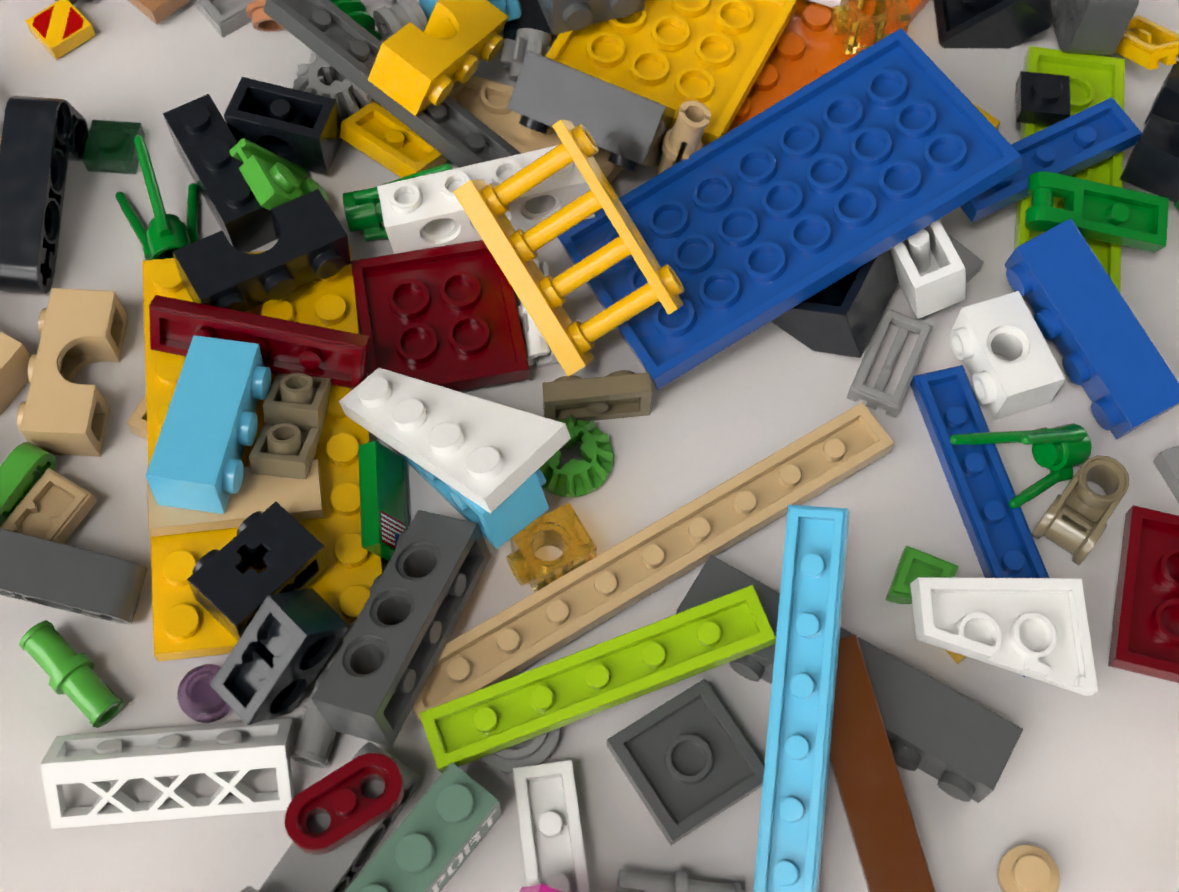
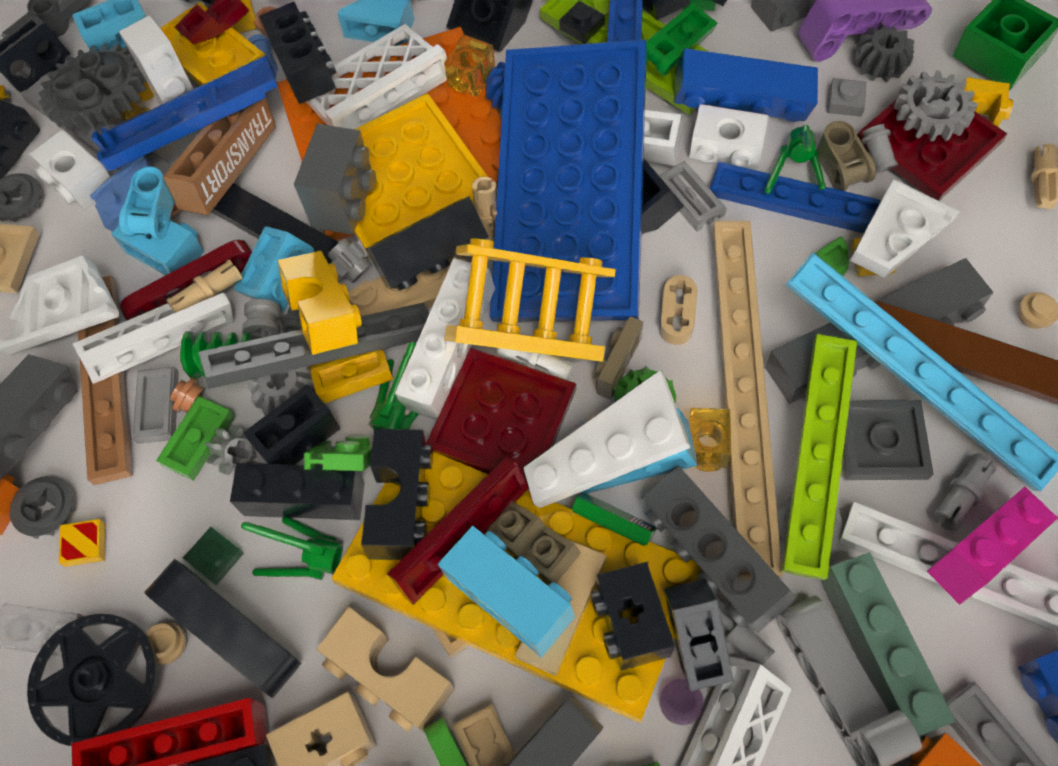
camera: 50 degrees left, 0 degrees up
(229, 50) = (186, 448): none -> bright green plate
(230, 72) = (219, 449): none -> light grey gear
(343, 800) = (827, 645): dark red plate -> none
(707, 422) = (686, 310): none -> tan beam
(1123, 540) = (879, 147): none -> light grey pin

